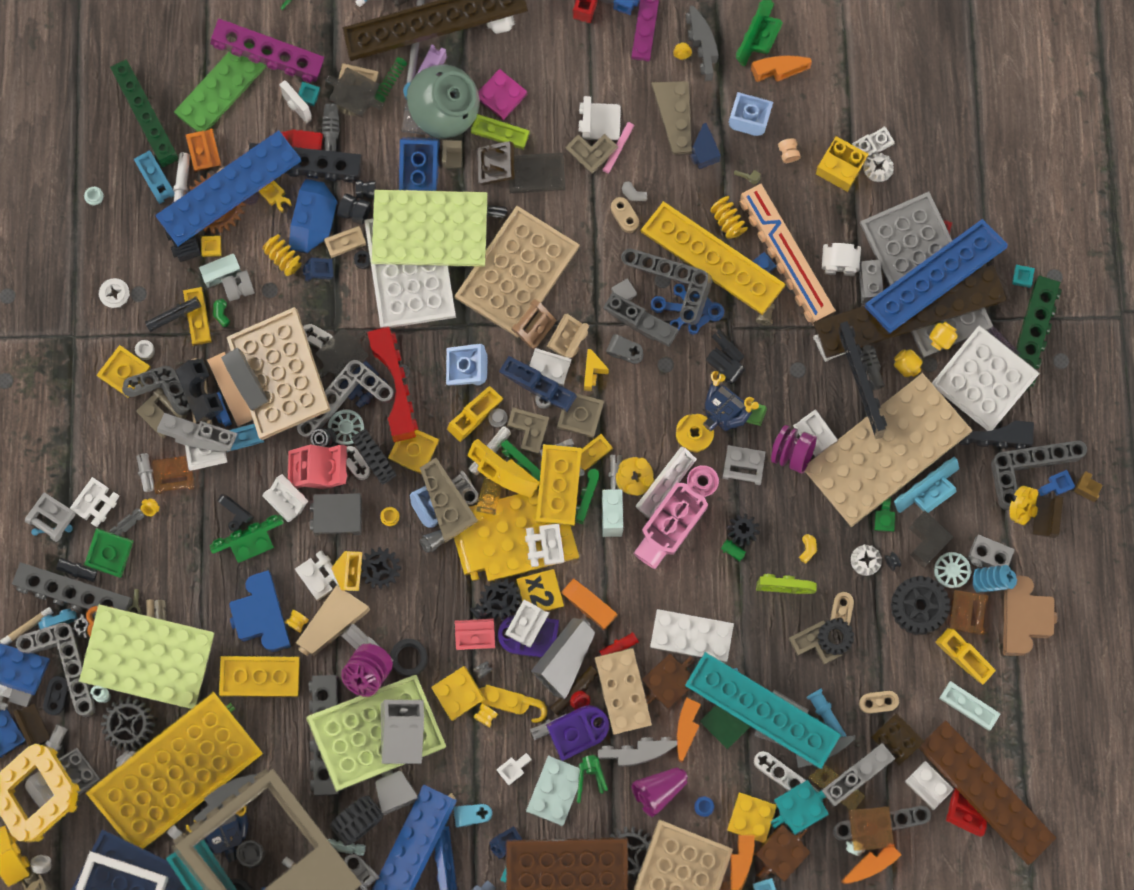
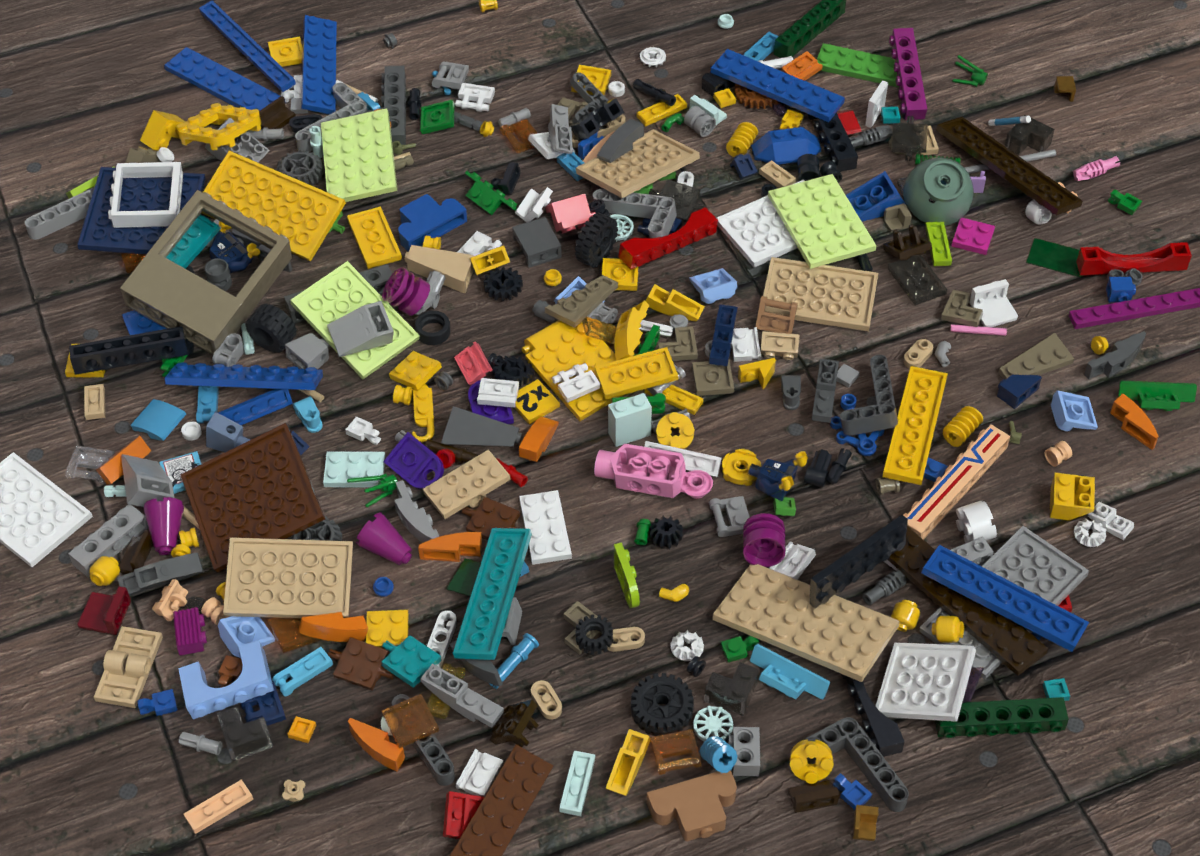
camera: 70 degrees right, 25 degrees down
(556, 32) = (1054, 257): none -> dark green piece

